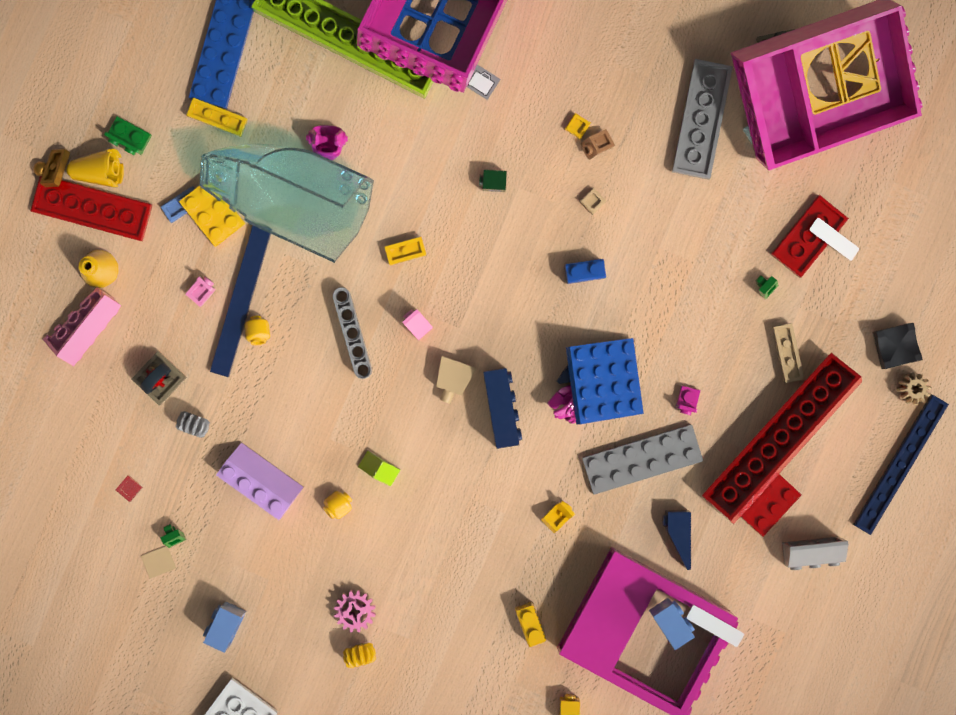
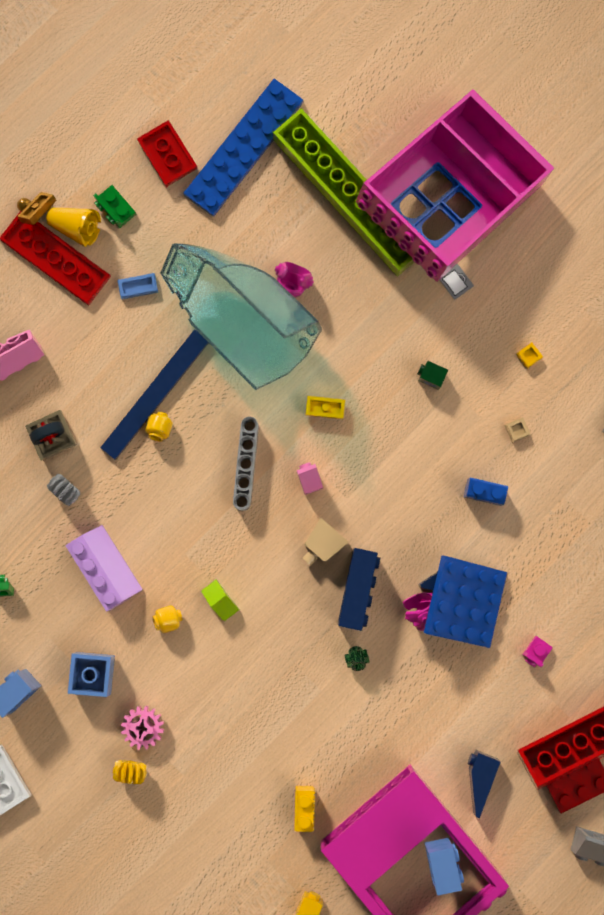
camera: 25 degrees right, 5 degrees down
(98, 268) = (37, 313): yellow cone -> none
(157, 65) = (167, 153): none -> red plate
(201, 290) = (122, 370): bright pink bracket -> none
(211, 215) = (161, 306): yellow plate -> none
(217, 117) = (201, 220): yellow plate -> none
(288, 582) = (91, 674): none -> medium blue brick
(525, 471) = (357, 658): none -> clear green gear
(558, 516) = (371, 714): yellow bracket -> none
(597, 144) = (541, 378): medium nougat bracket -> none
(642, 459) = (472, 691): light grey plate -> none
(715, 626) = (483, 885): white sticker -> none

